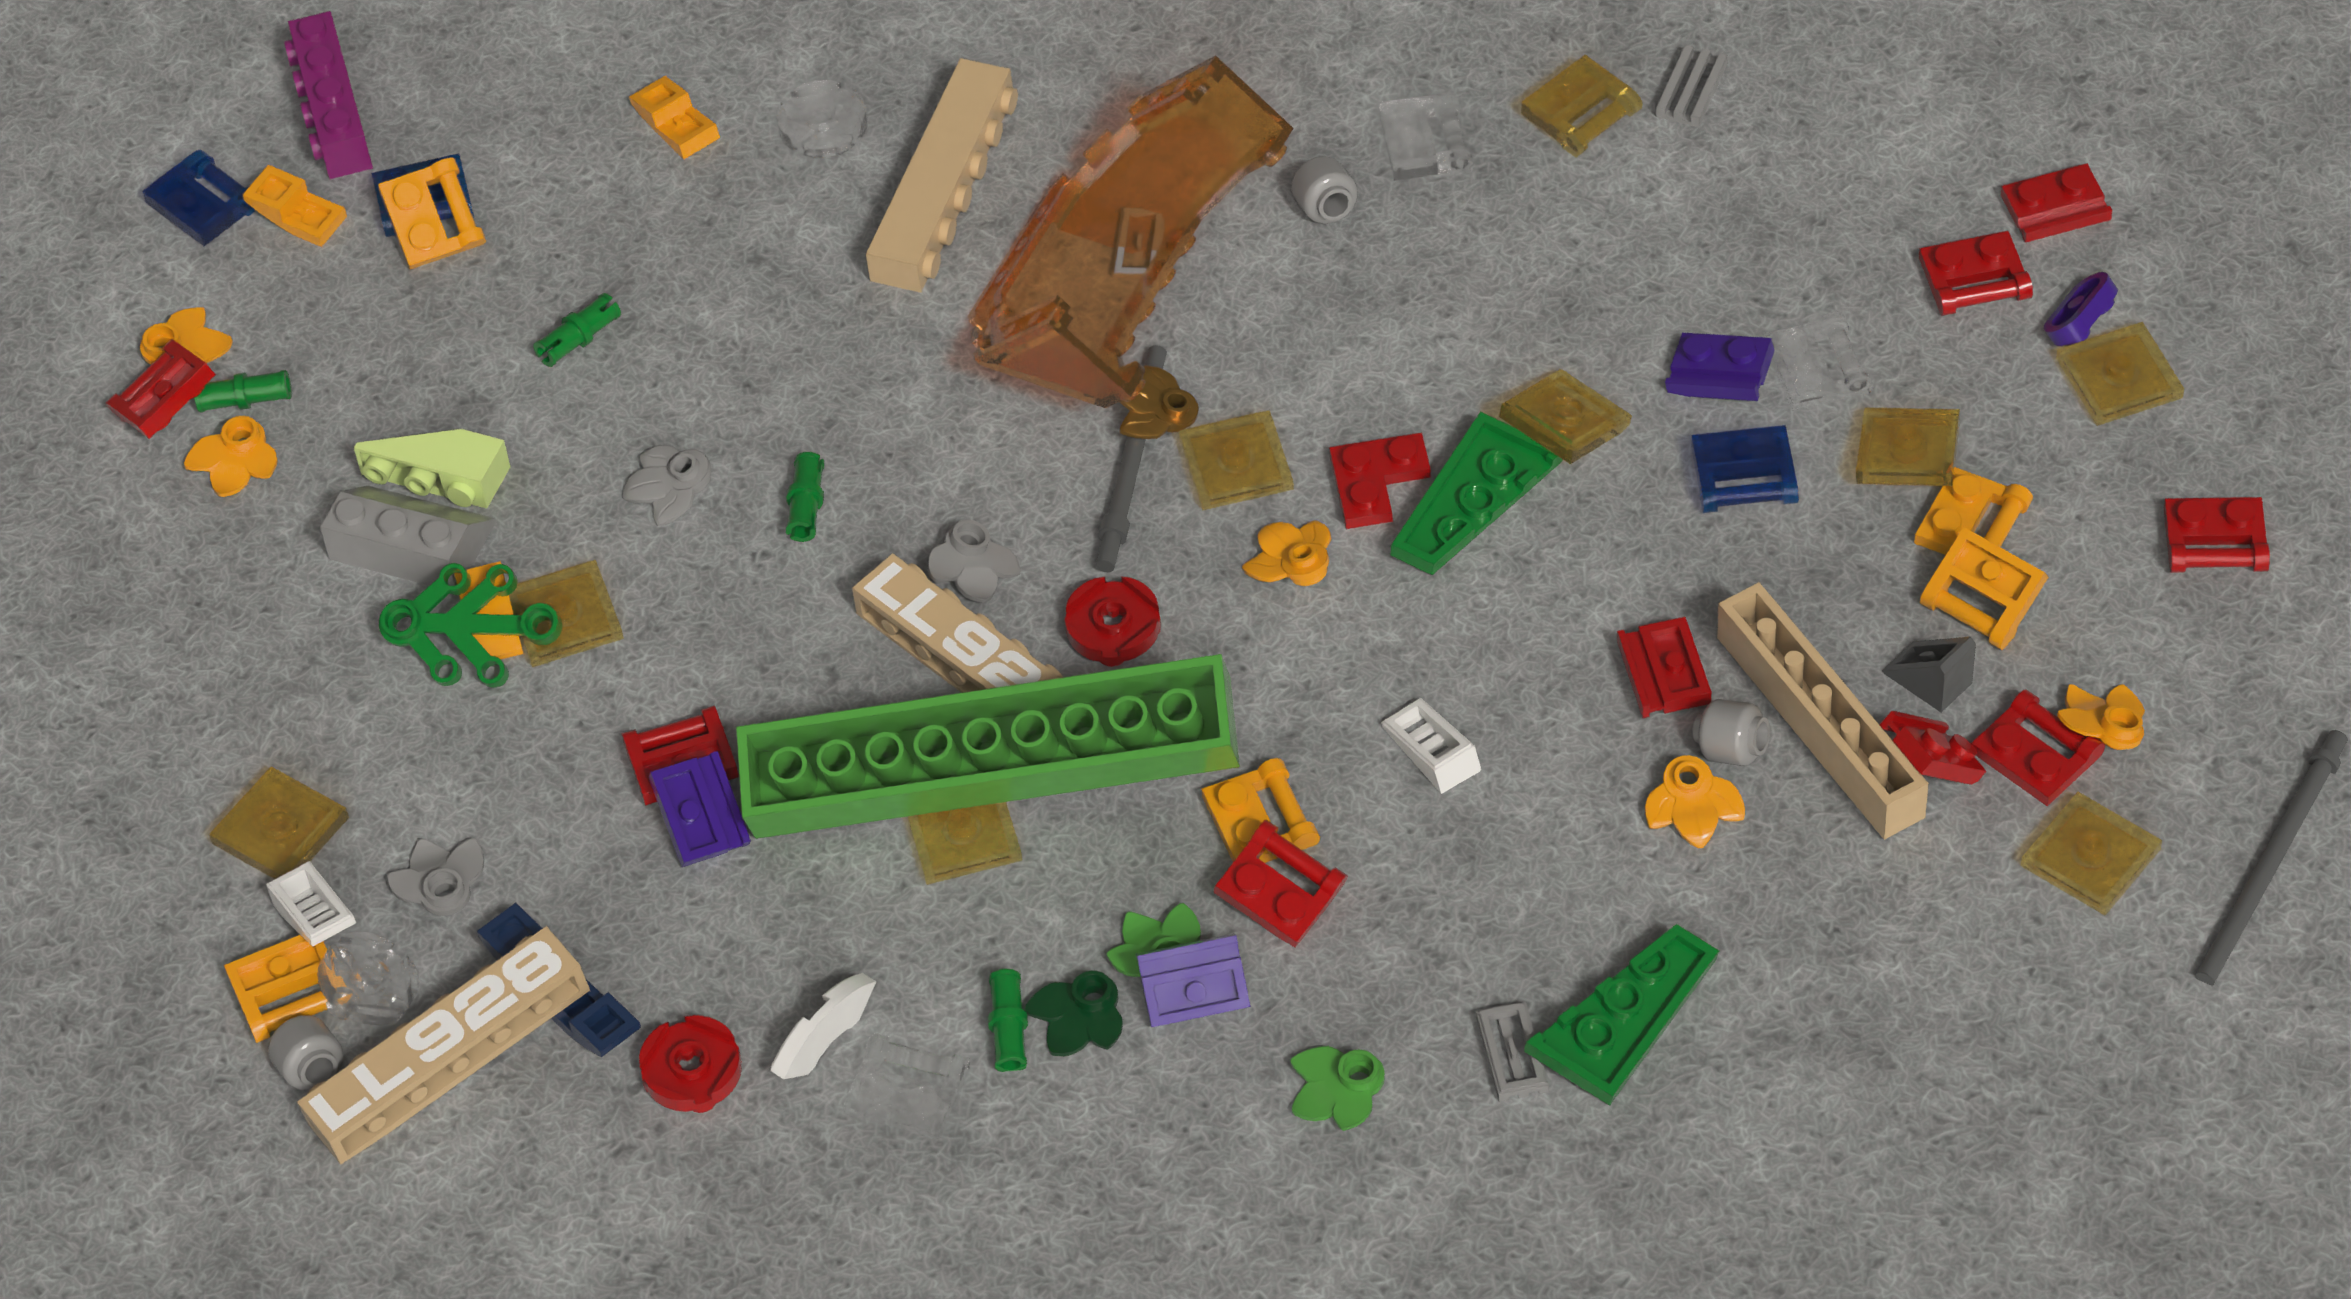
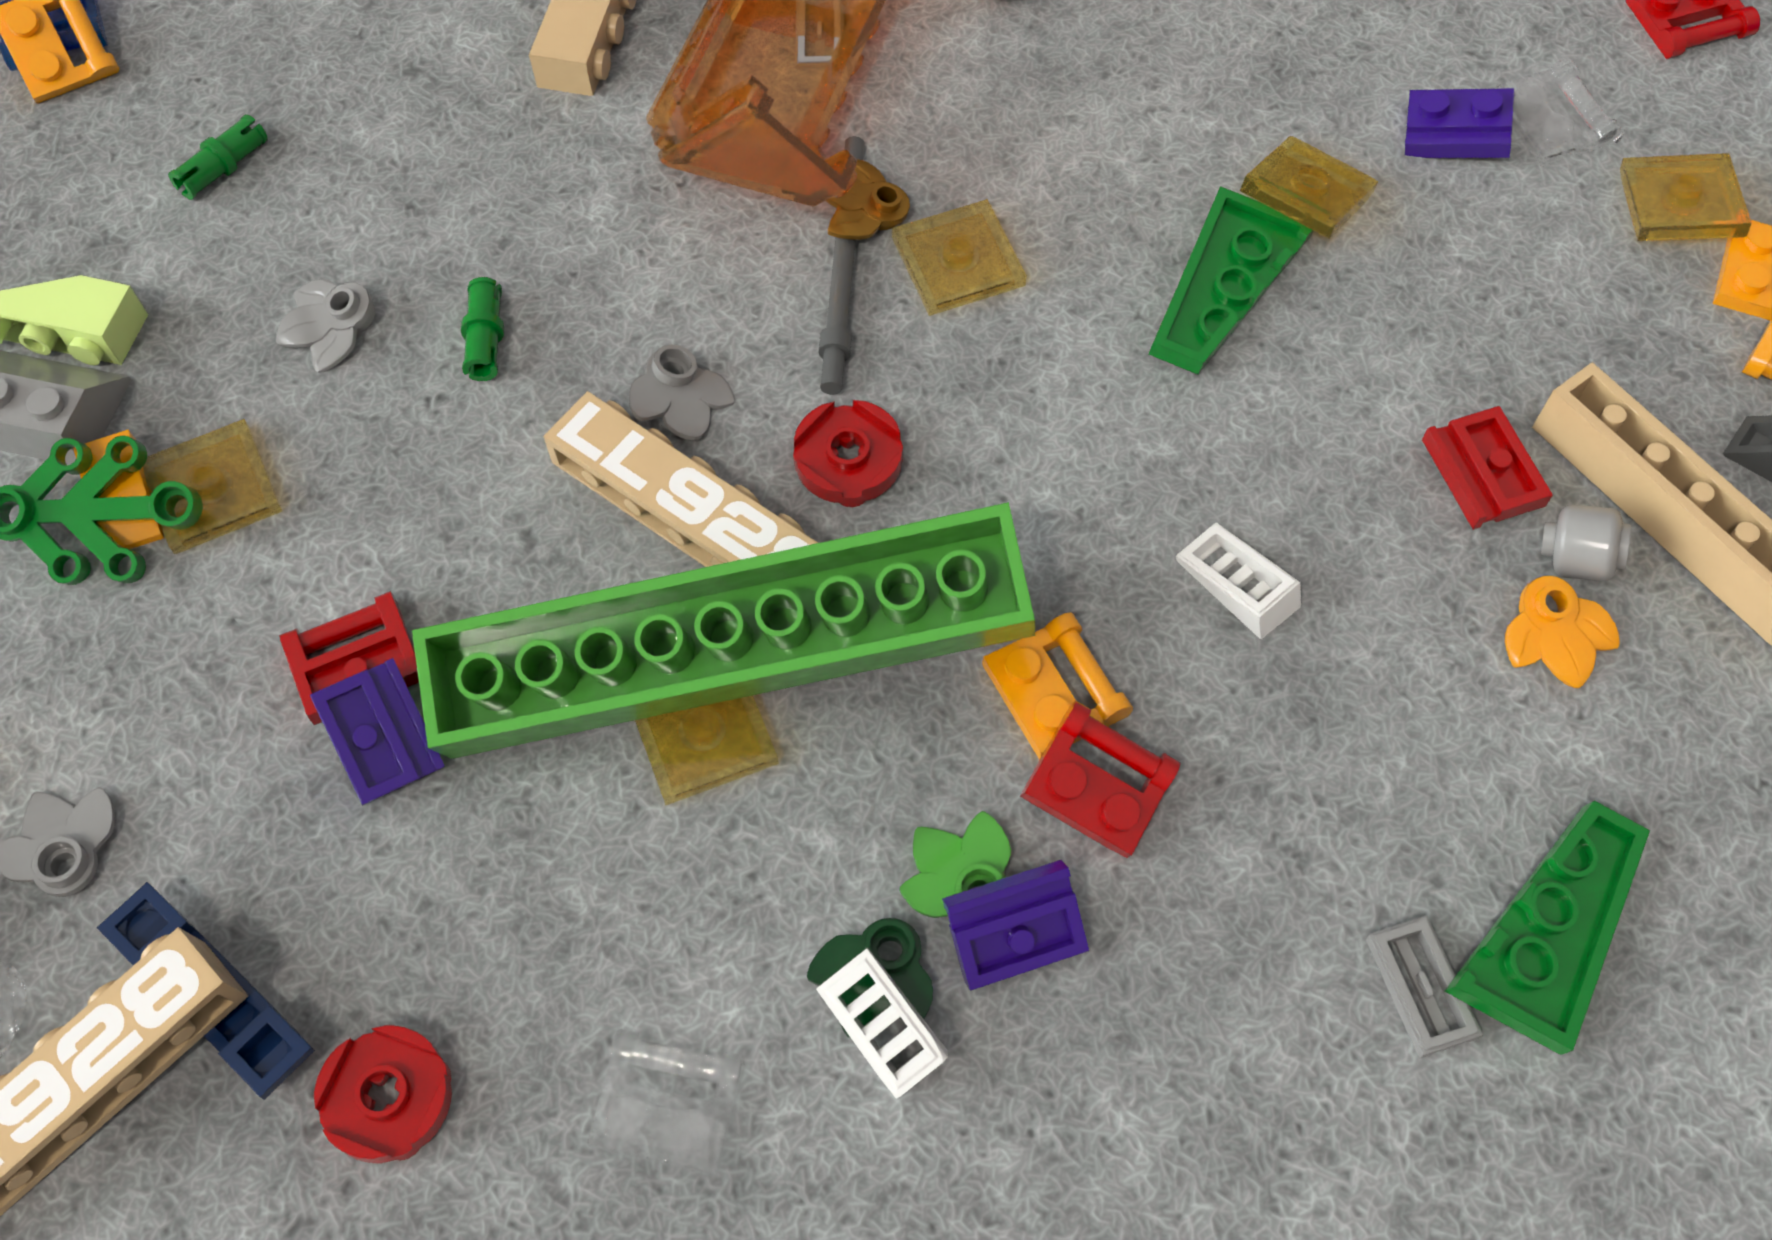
camera: 10 degrees left, 10 degrees up
(812, 1037) = (534, 1055): white tile -> none
(1007, 1020) = (787, 997): green pin -> none
(1101, 1070) = (920, 1065): none -> white slope
(1291, 553) = (1037, 359): light orange plate -> none
(1331, 1089) = (1208, 1063): bright green plate -> none
(1366, 469) = (1102, 261): red plate -> none
(1744, 456) = (1511, 218): clear blue plate -> none

